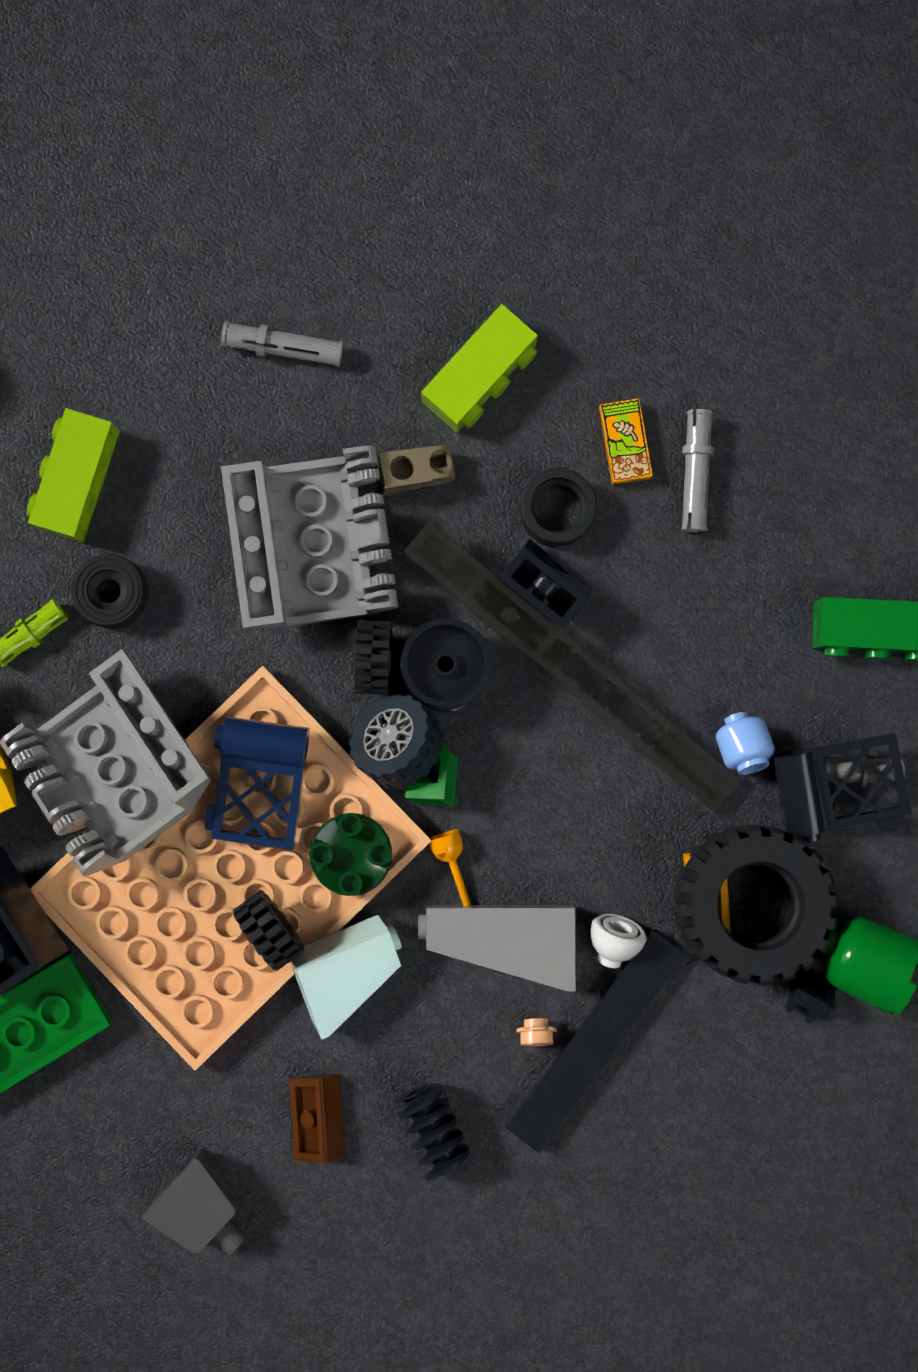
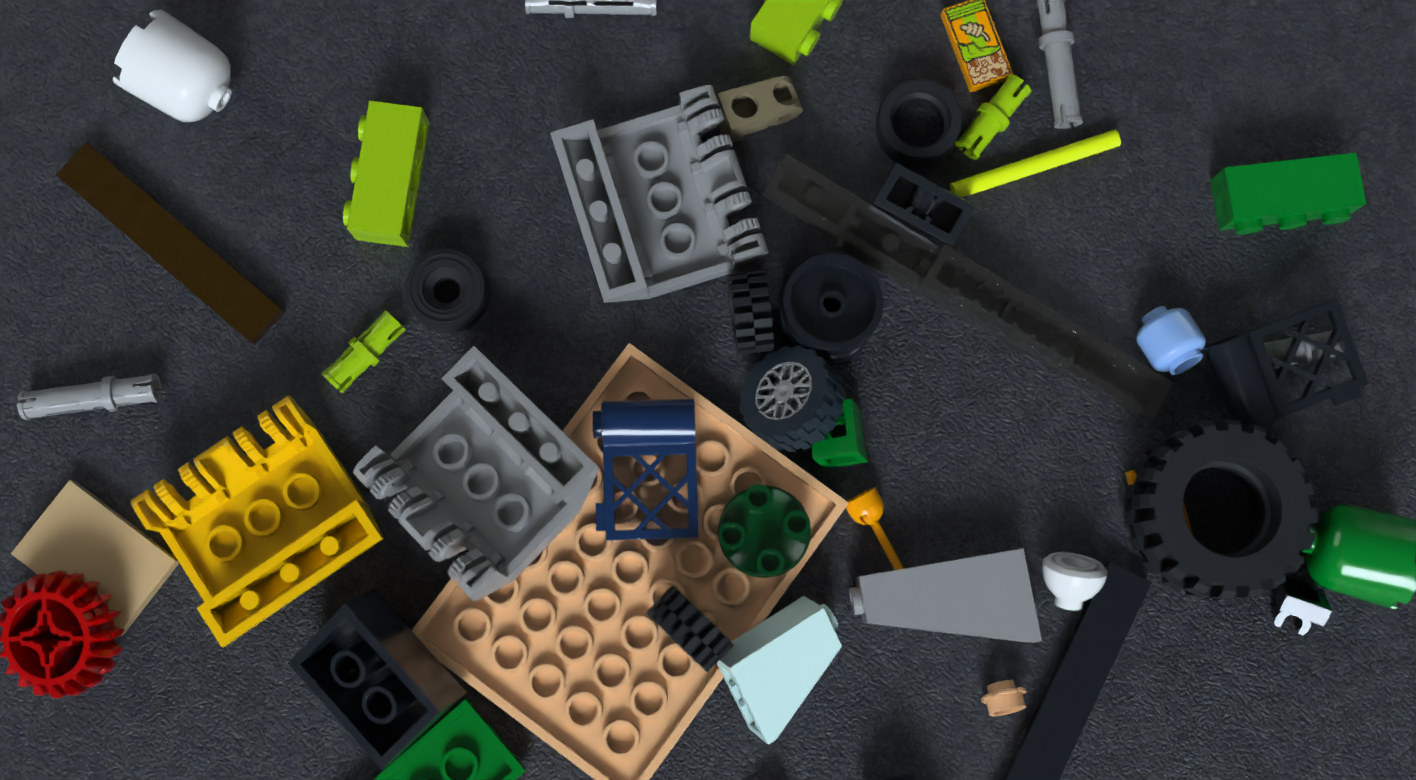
camera: 10 degrees left, 5 degrees down
(626, 512) = (993, 117): none -> lime pin
(658, 561) = (1036, 164): none -> neon yellow bar

